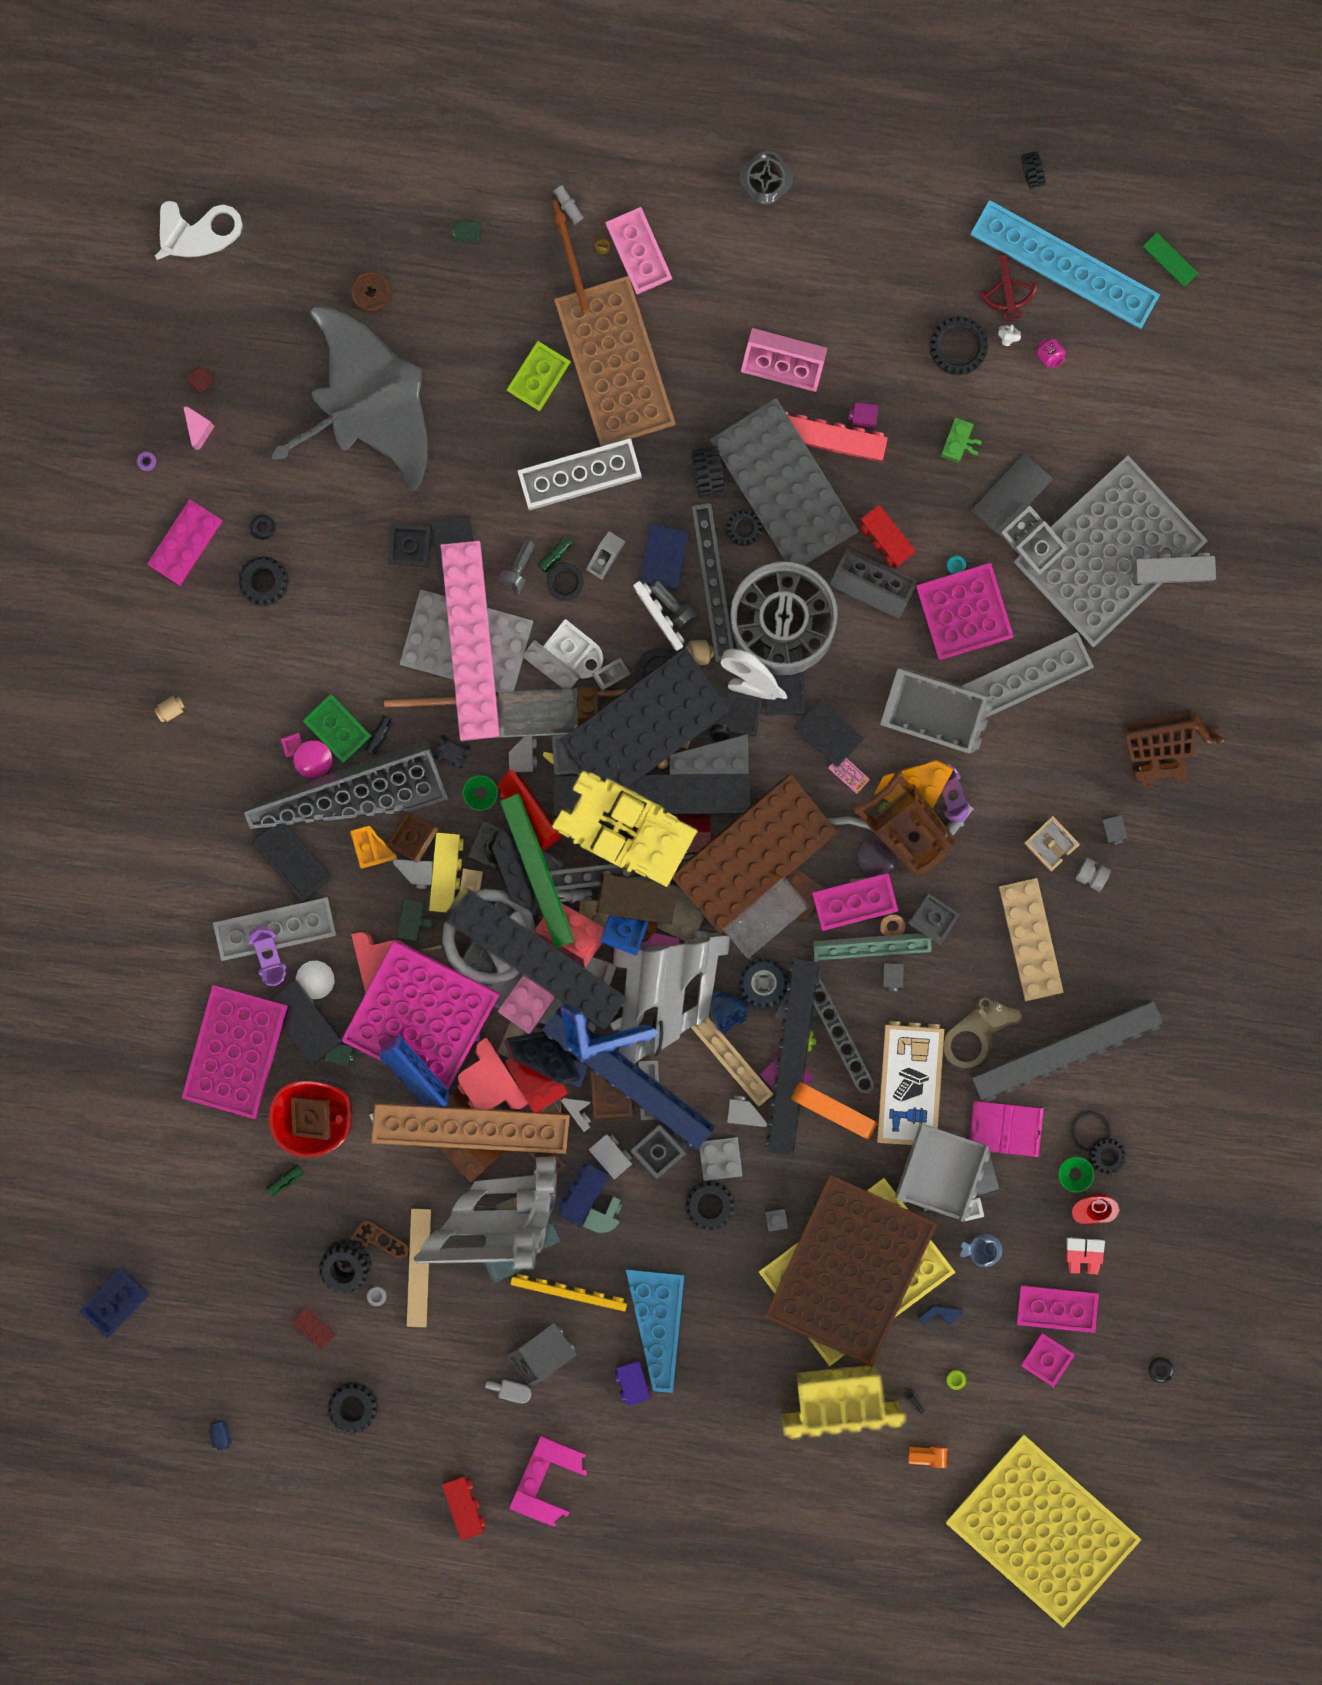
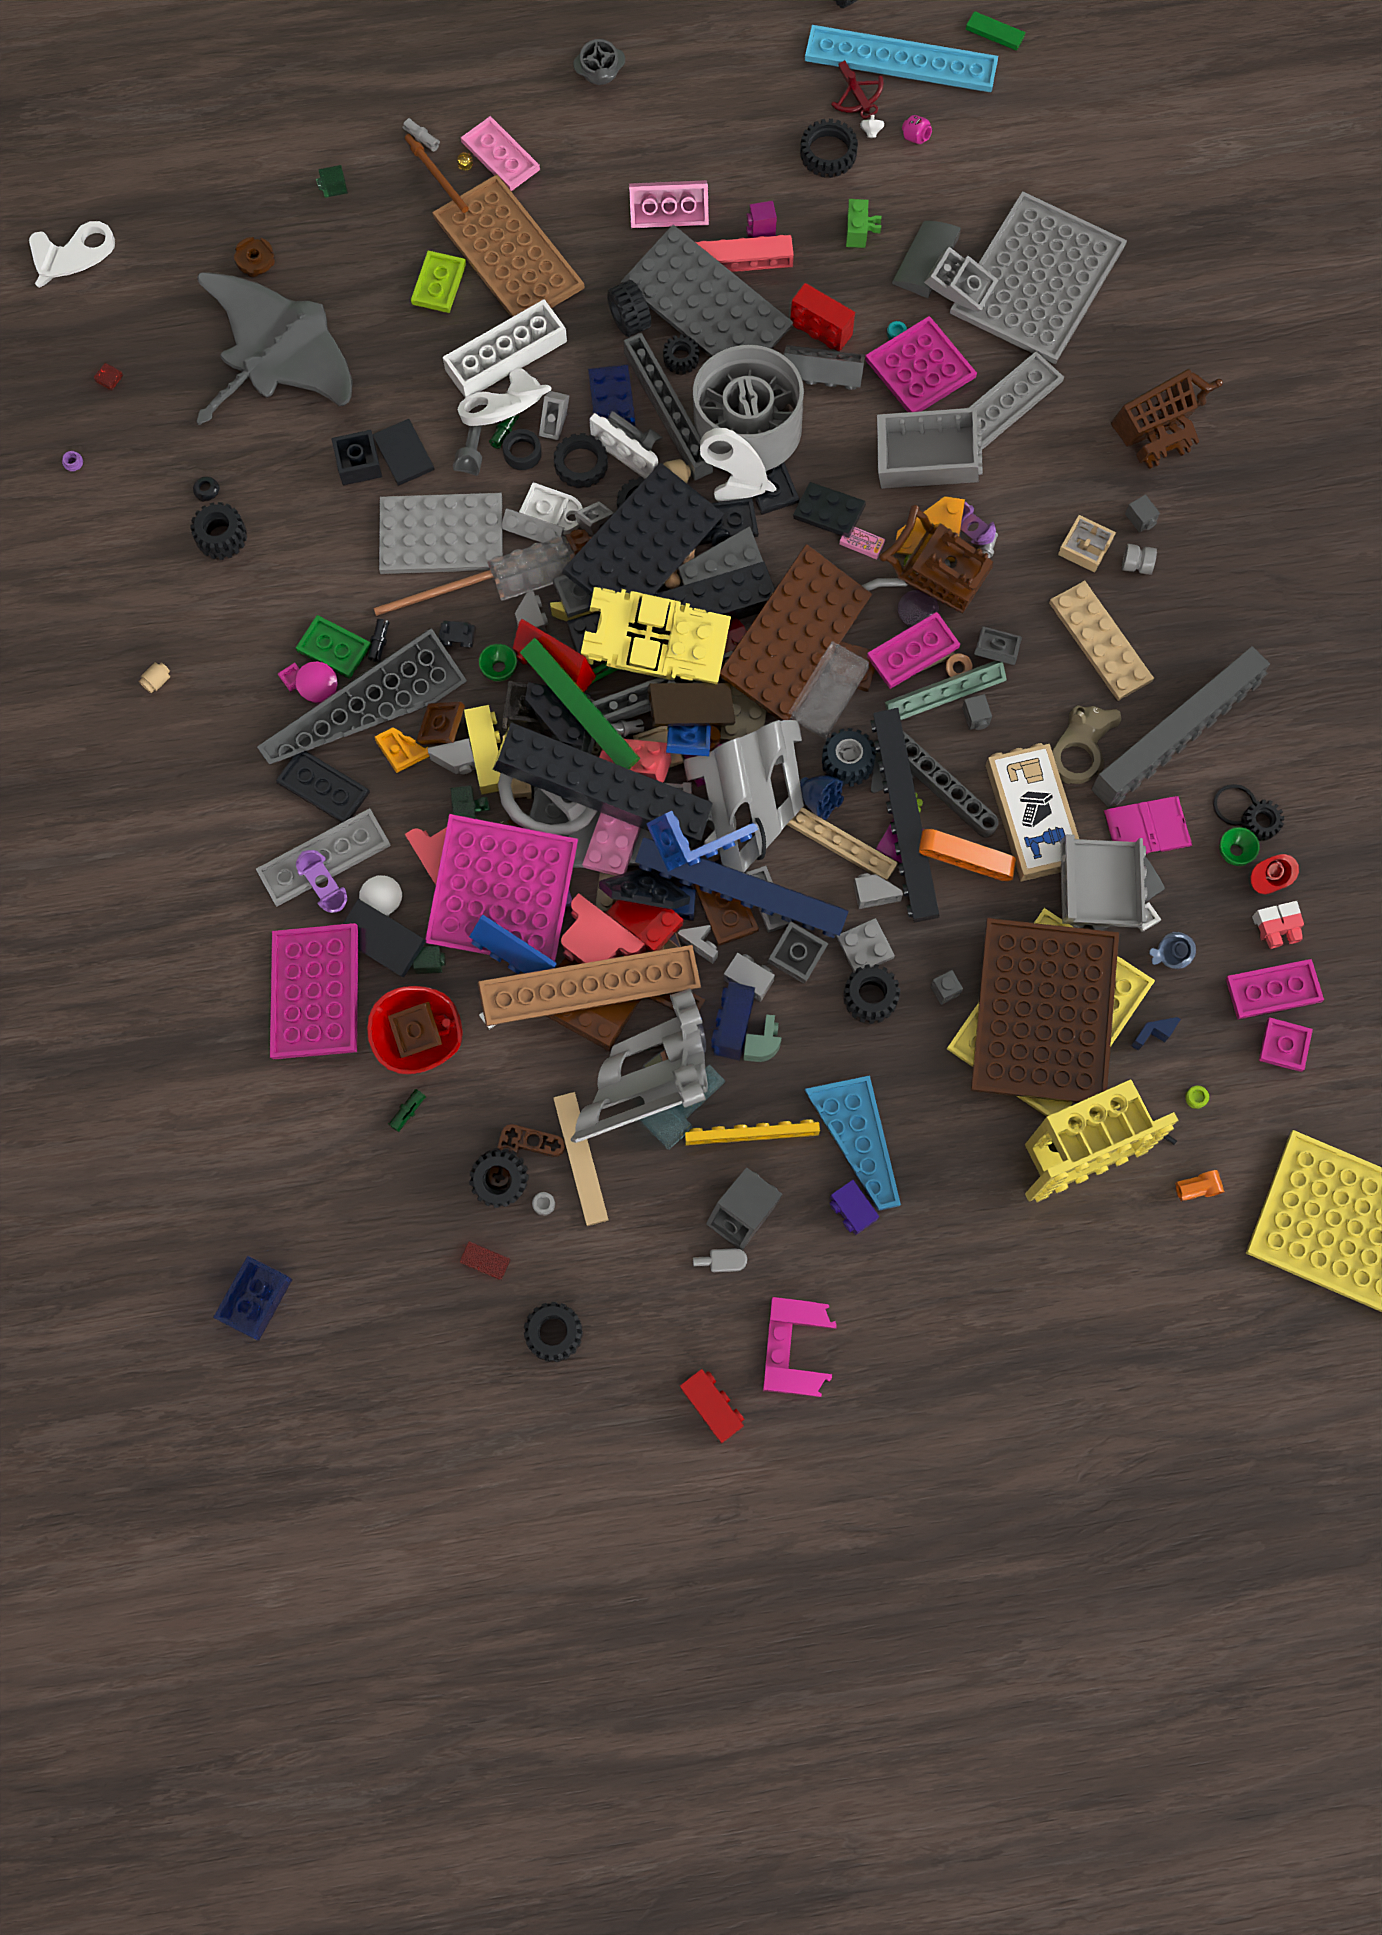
camera: 20 degrees left, 15 degrees down
(185, 542) = (130, 523): dark pink plate -> none
(198, 427) = (116, 409): bright pink slope -> none
(220, 1435) = (412, 1412): dark blue brick -> none
(470, 641) = (444, 522): bright pink brick -> none
(561, 535) = (520, 395): none -> white animal
(607, 629) = (580, 442): none -> black tyre
(1175, 569) = (1107, 267): light grey brick -> none

